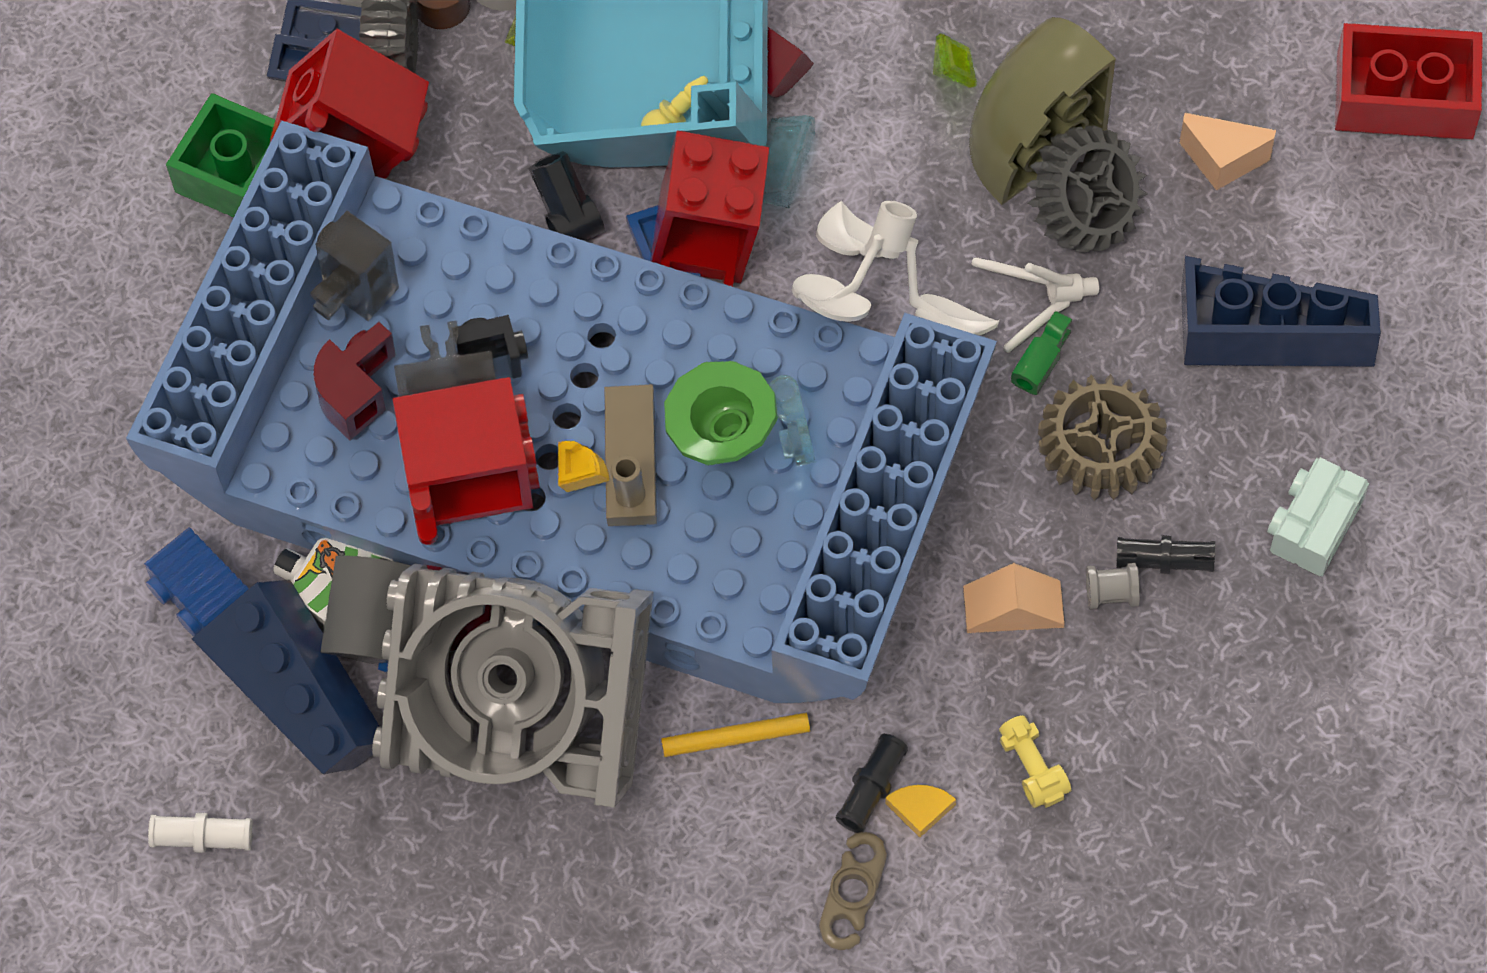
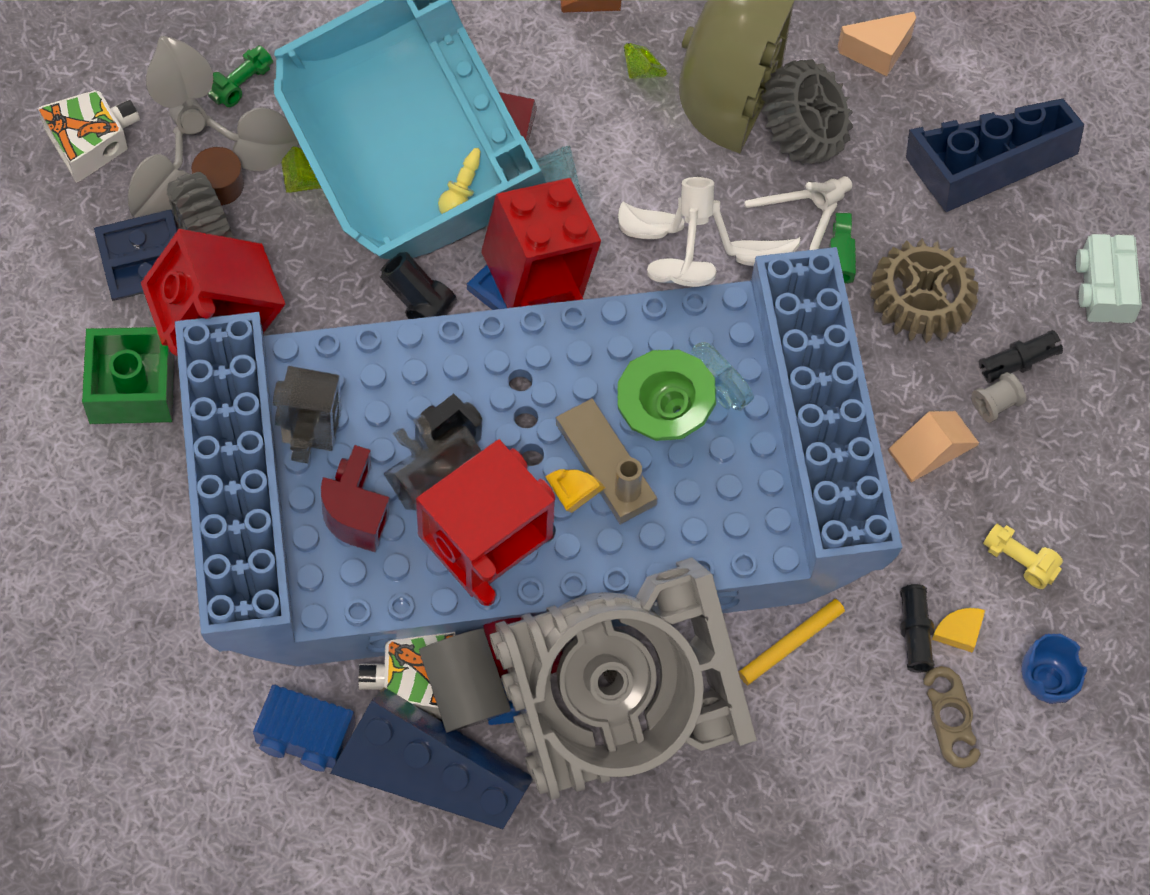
camera: 35 degrees left, 0 degrees up
(986, 892) = (1053, 669): none -> blue hair

